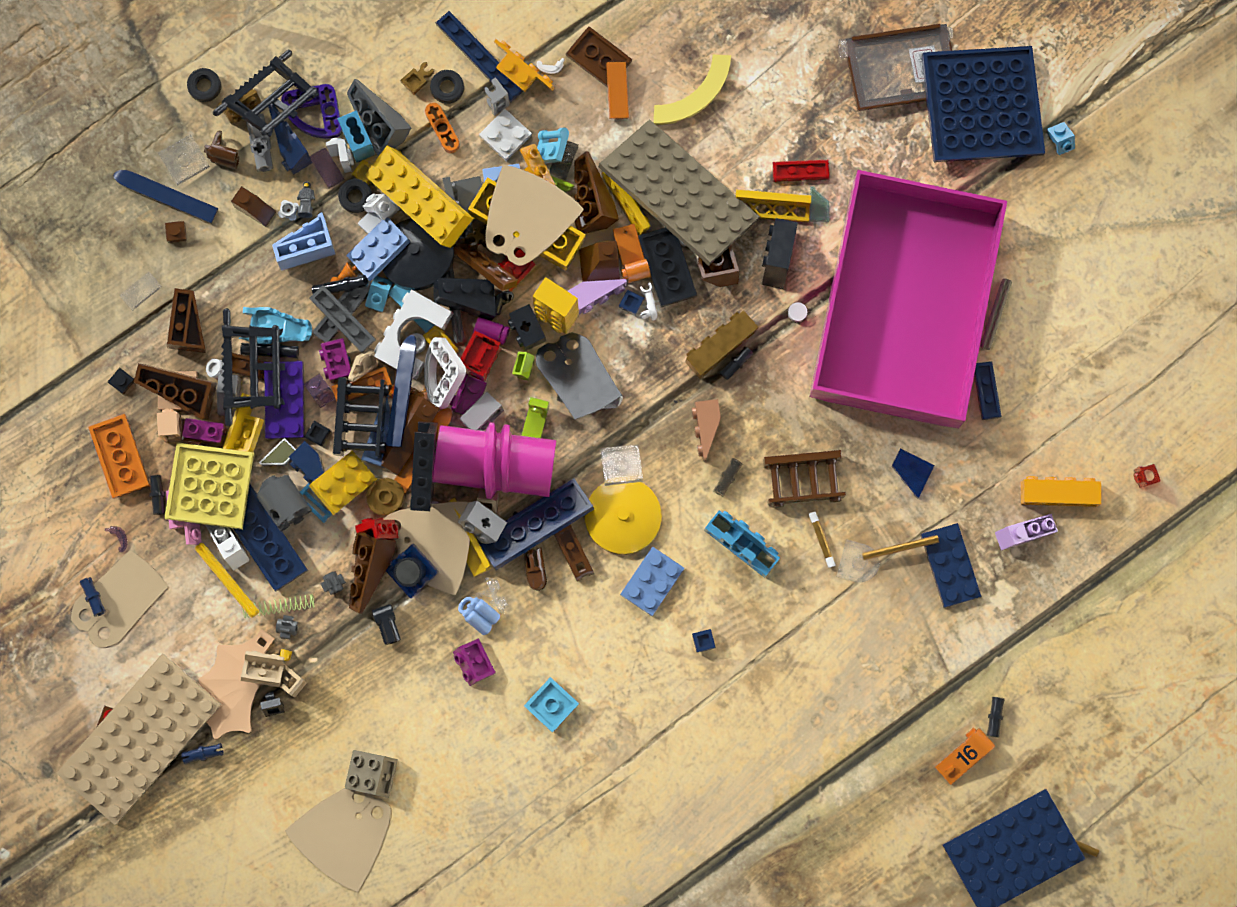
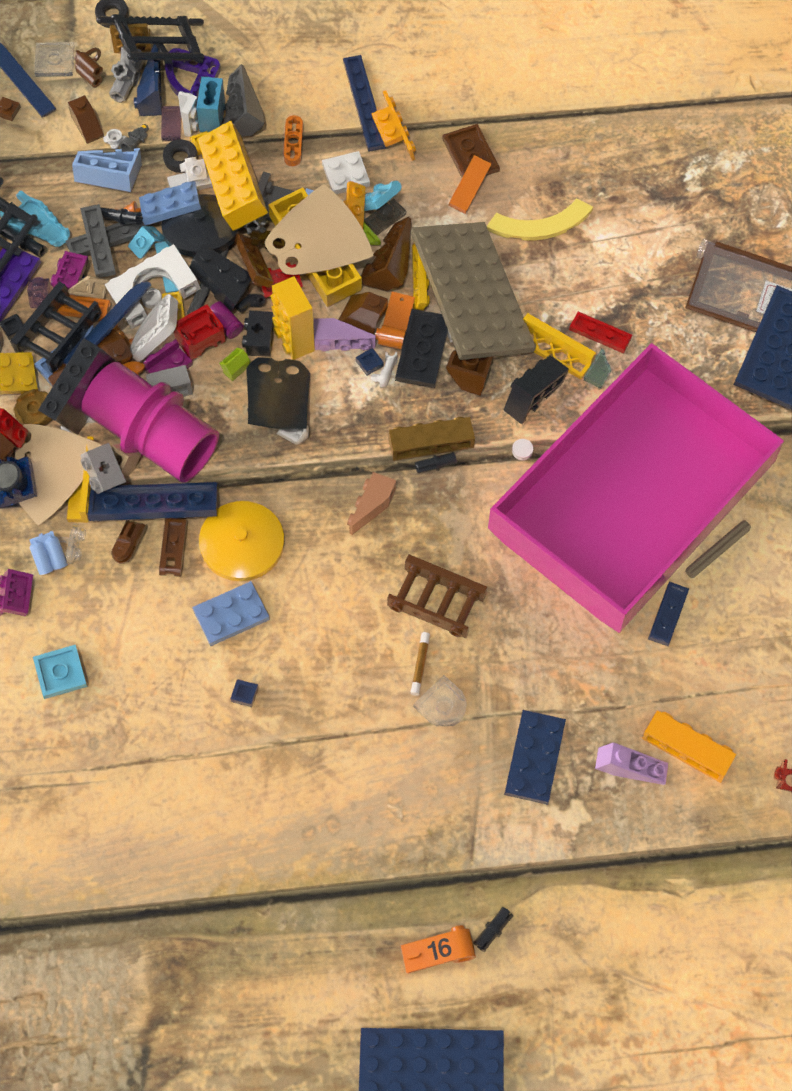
camera: 30 degrees right, 15 degrees down
(416, 79) = (295, 92): pearl gold plate -> none
(451, 97) = (319, 101): black tyre -> none
(498, 98) = (355, 135): light grey hinge -> none
(535, 418) = (220, 410): lime bracket -> none
(550, 69) = (422, 142): white piece -> none
(621, 465) = (269, 494): clear tile -> none
(727, 477) = (363, 557): clear smoke pin -> none
(742, 542) = (339, 623): dark azure piece -> none
(900, 547) = (492, 709): pearl gold bar -> none
(912, 470) = (549, 648): clear blue wing -> none

